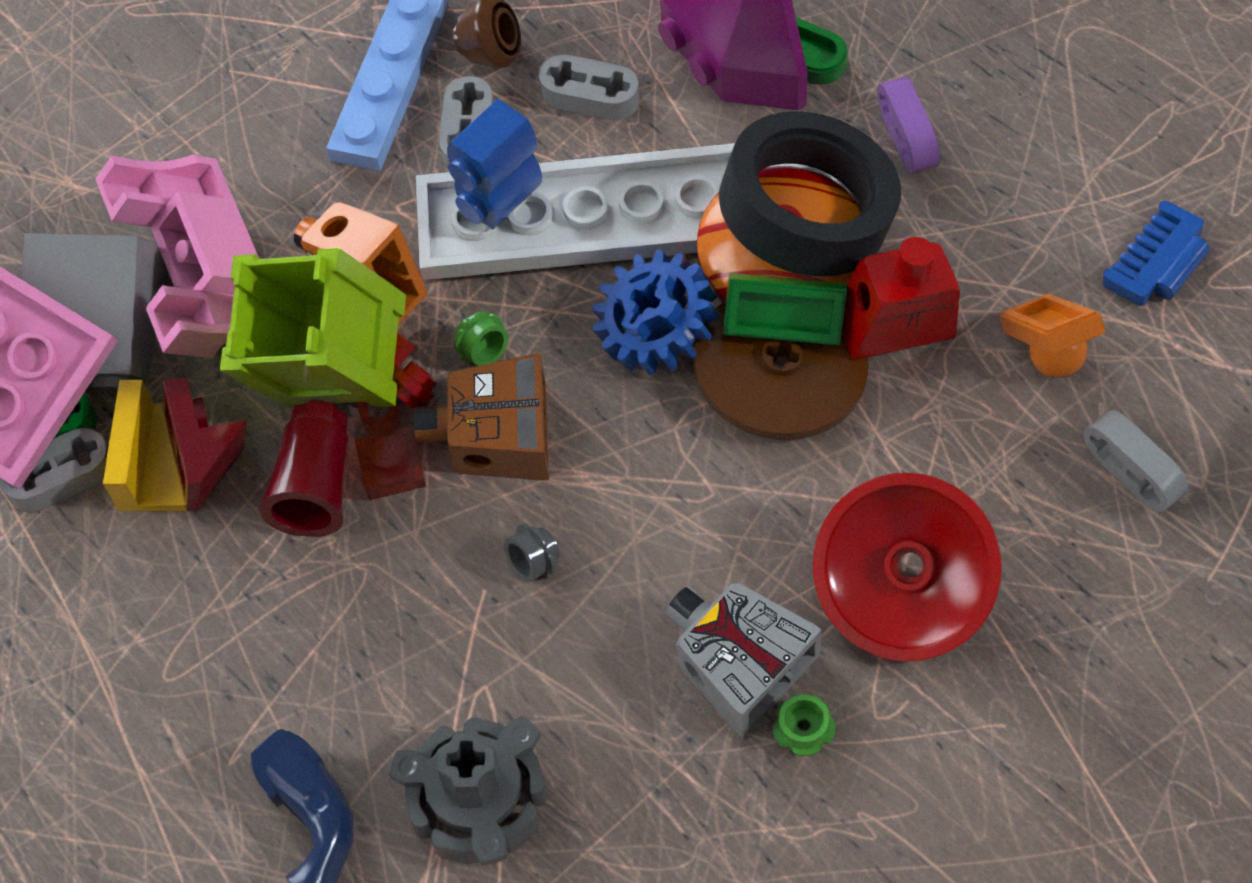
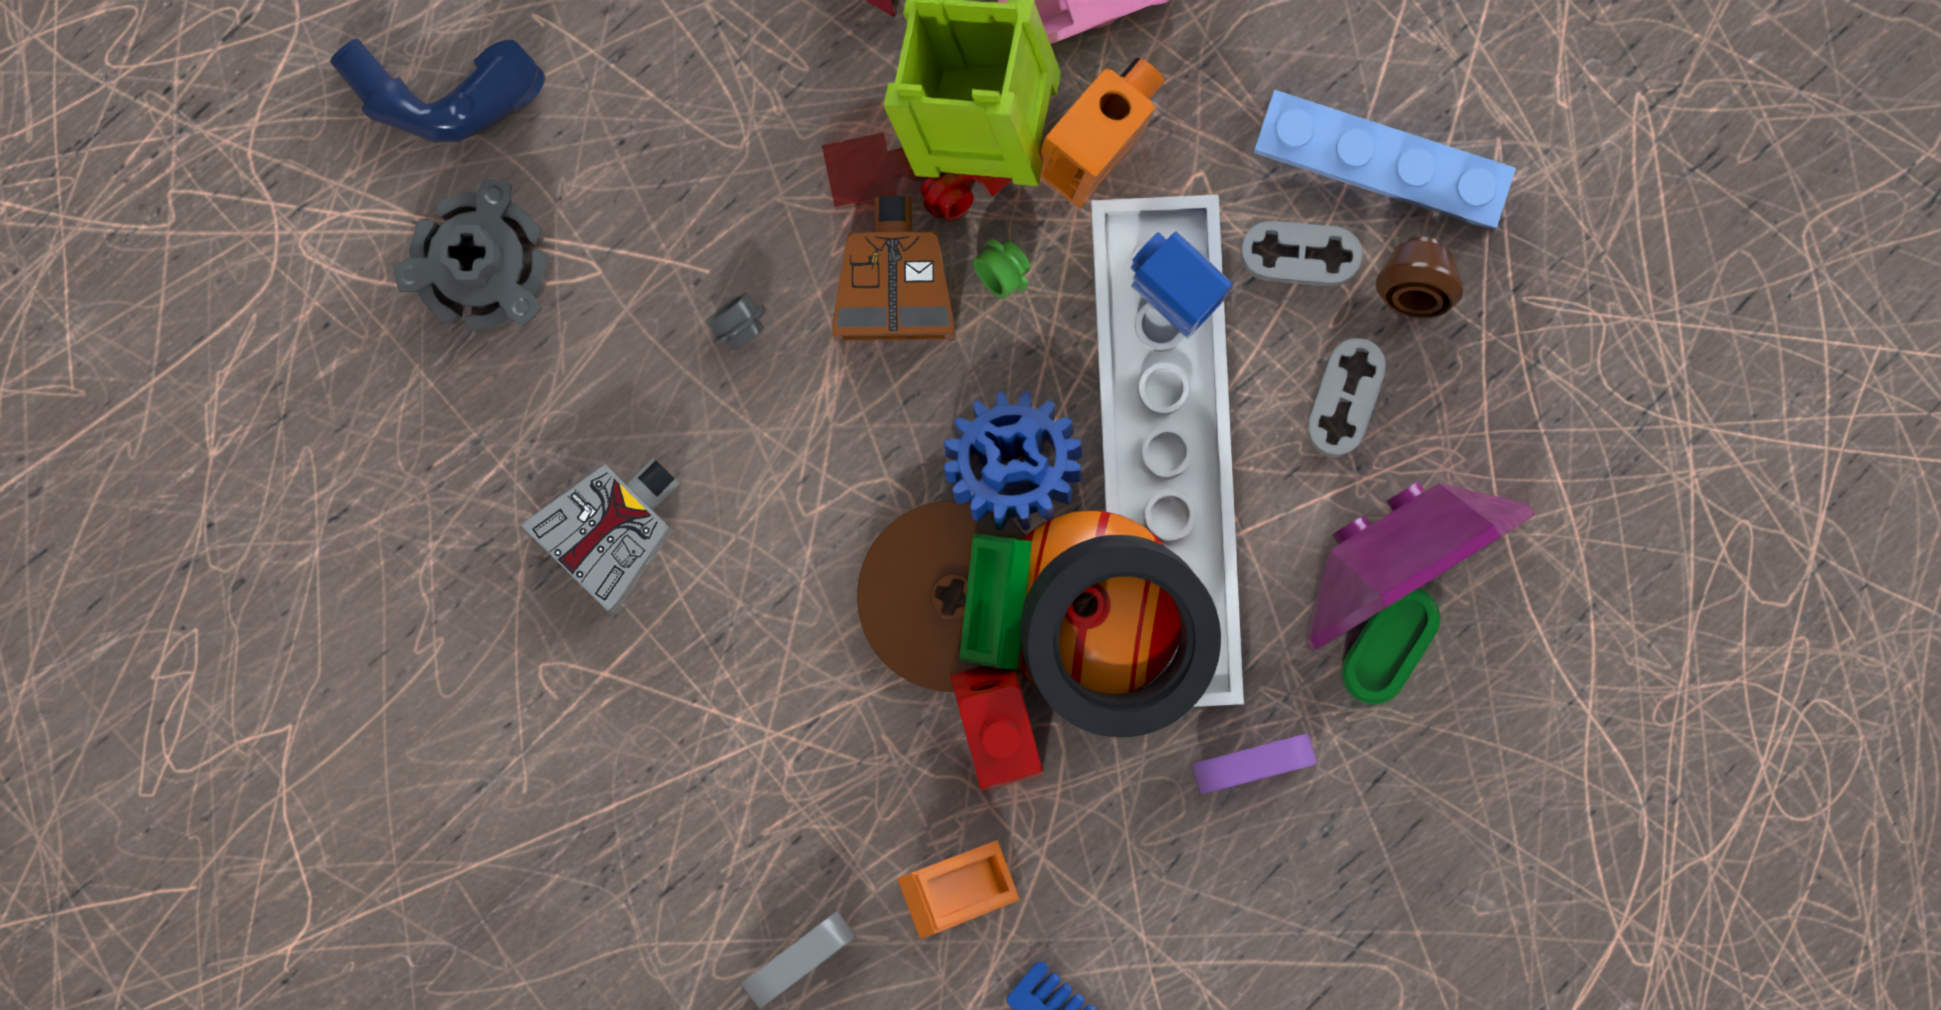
camera: 90 degrees right, 25 degrees up
(309, 472) = (835, 84): dark red plant -> none
(800, 709) = (511, 590): bright green plate -> none
(862, 574) = (649, 697): red dish -> none

